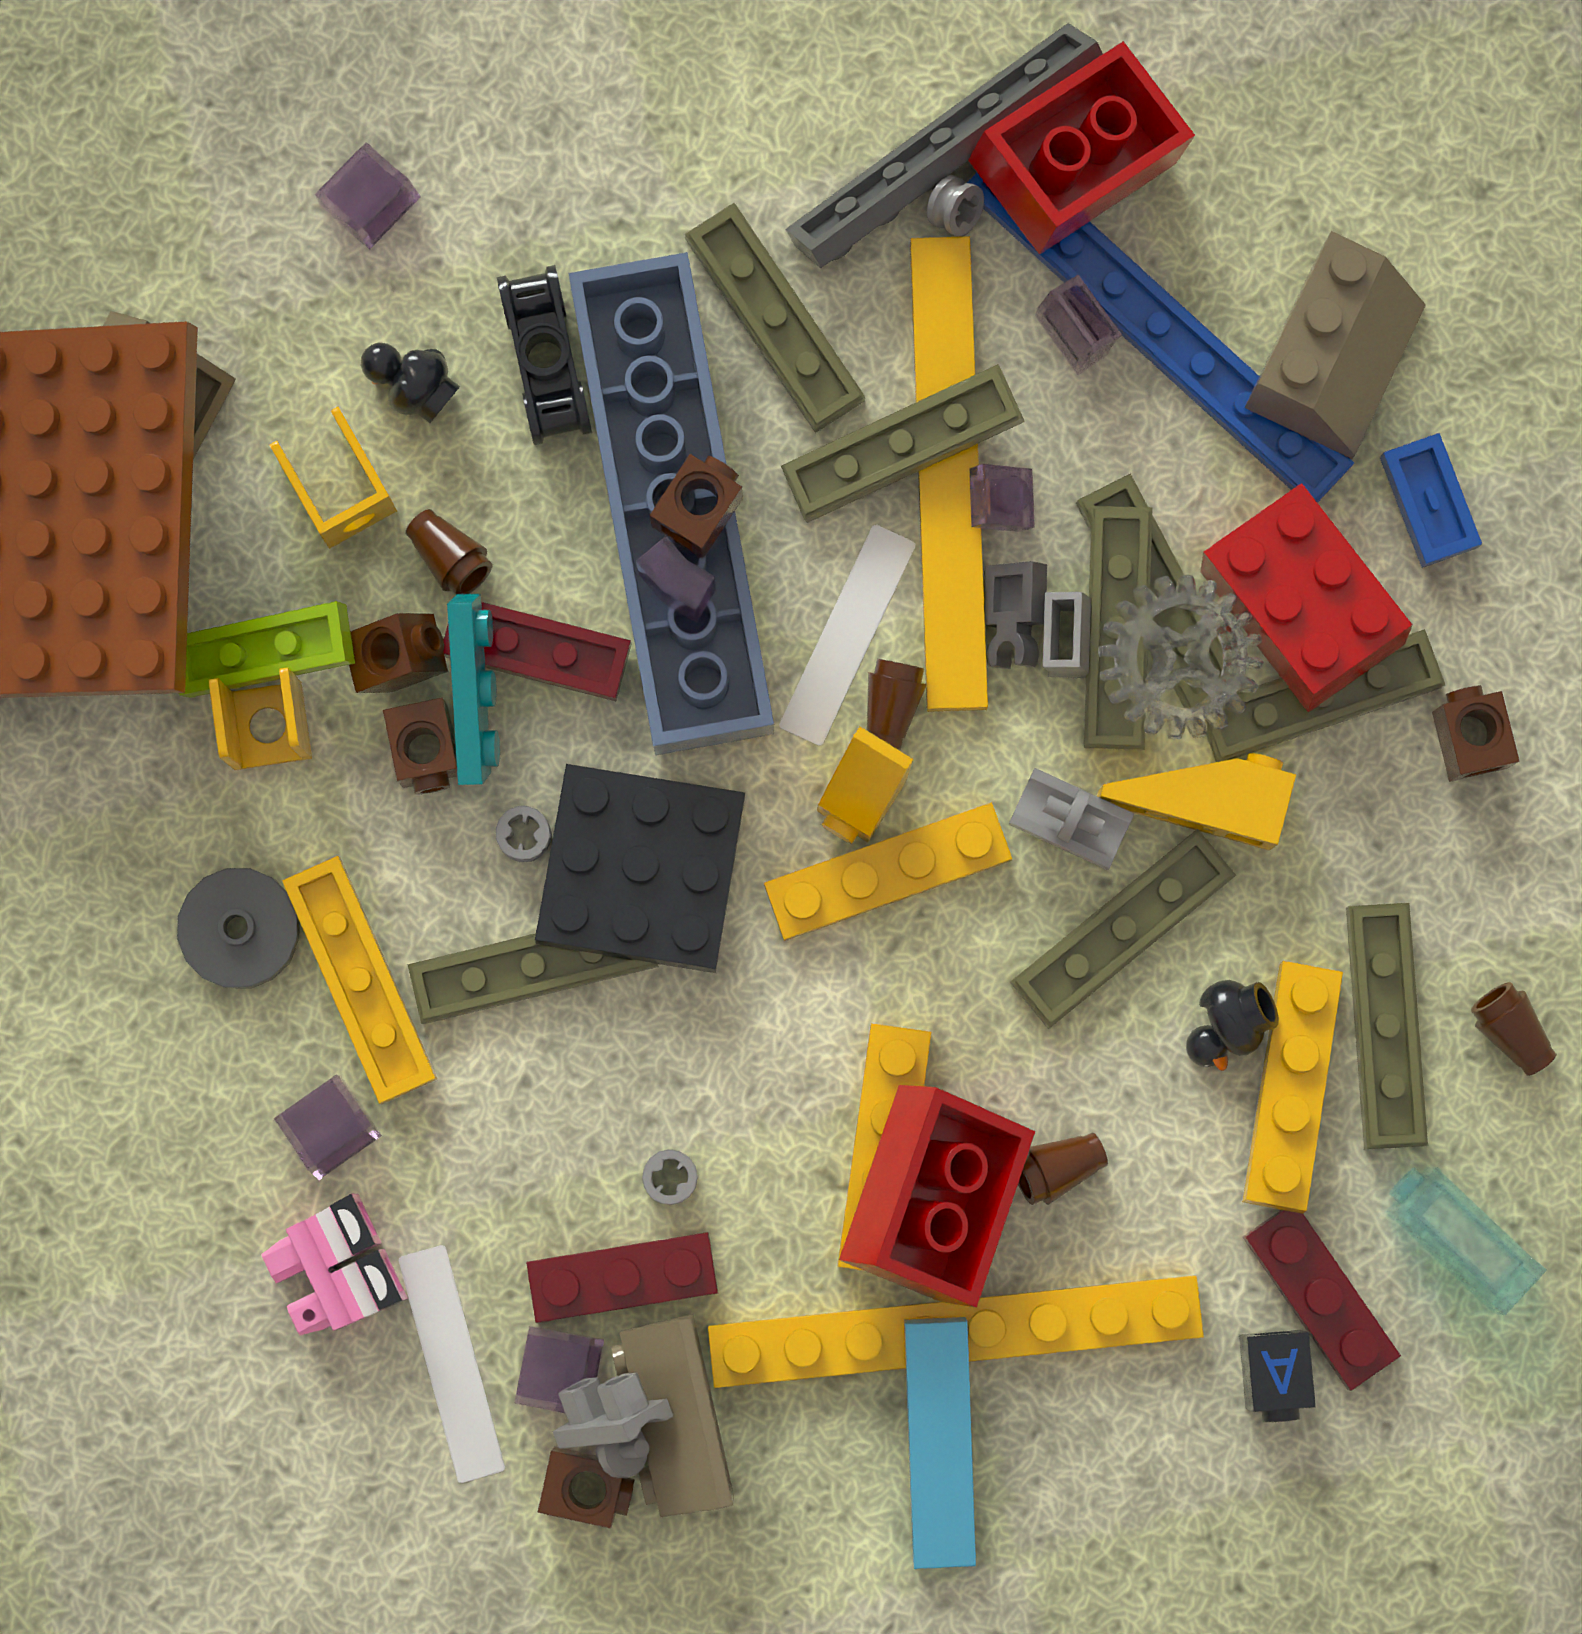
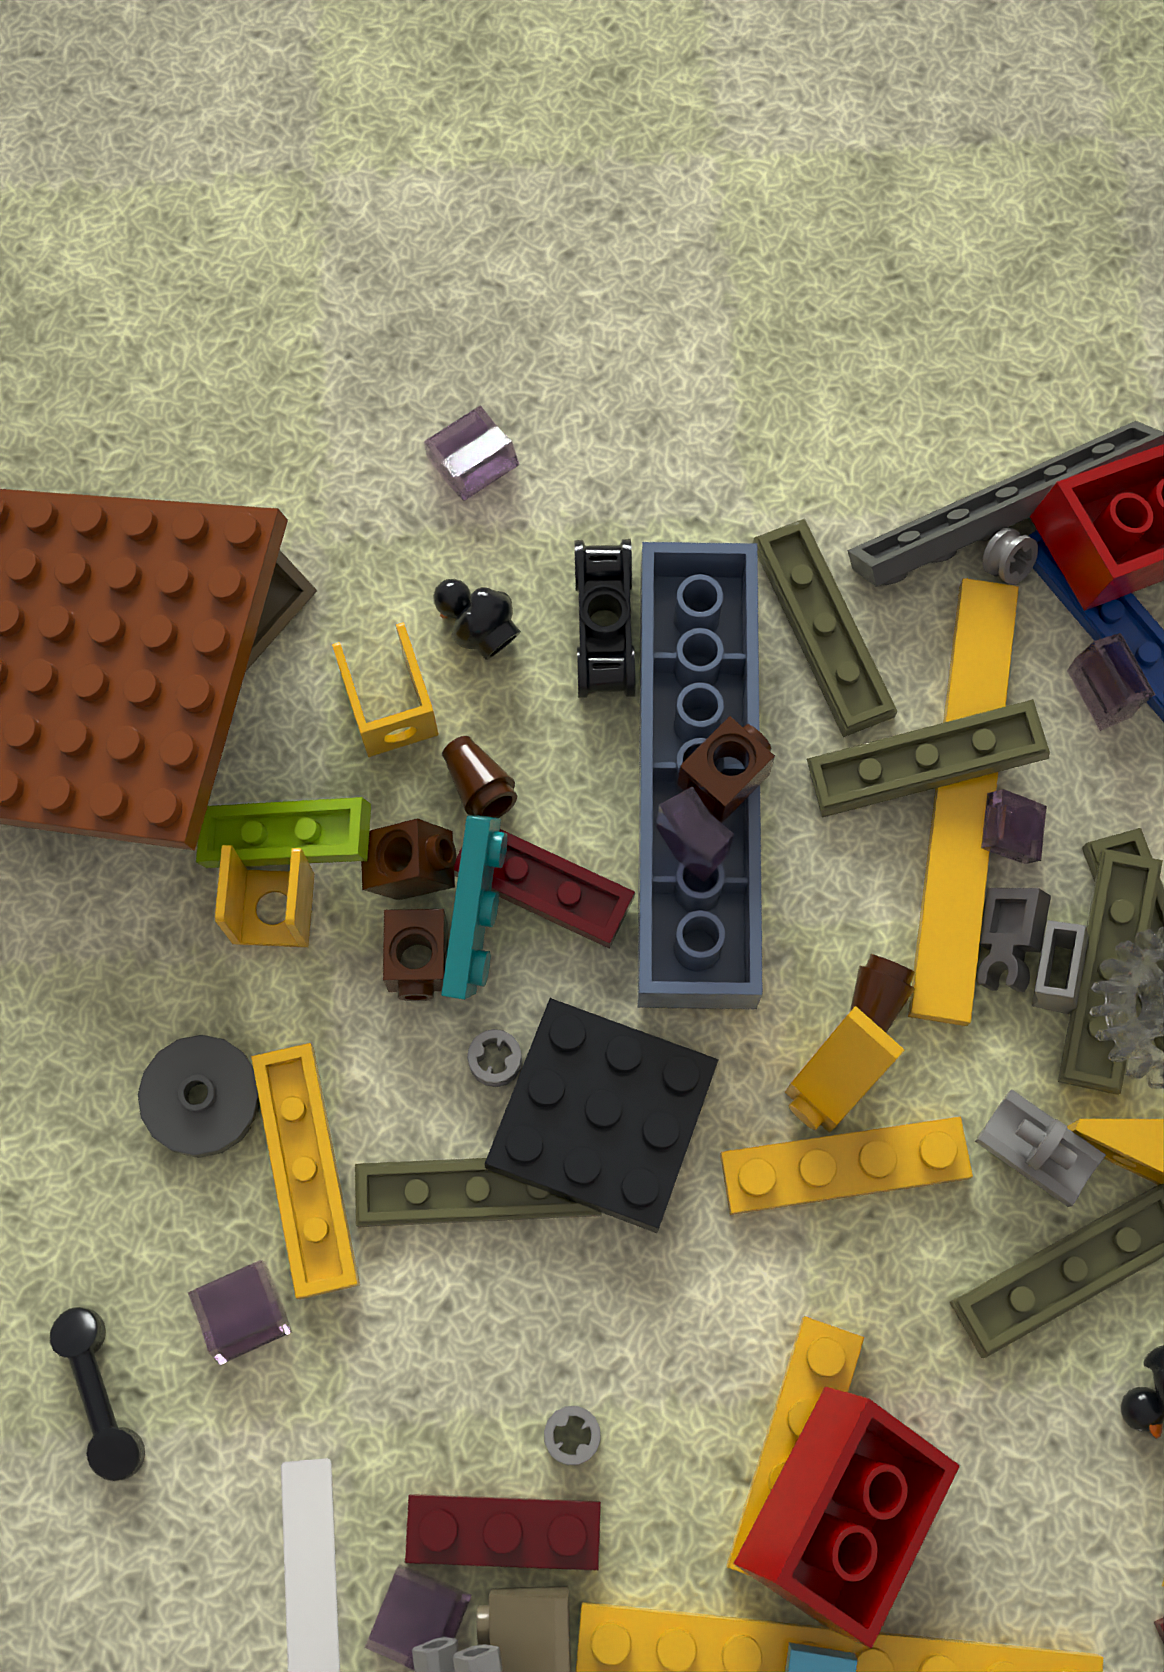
camera: 15 degrees right, 10 degrees down
(235, 1278) = (112, 1450): none -> black bar
(321, 1245) = (198, 1437): bright pink hips -> none
(847, 635) = (841, 930): white sticker -> none
(1060, 1166) = (977, 1508): reddish brown cone -> none

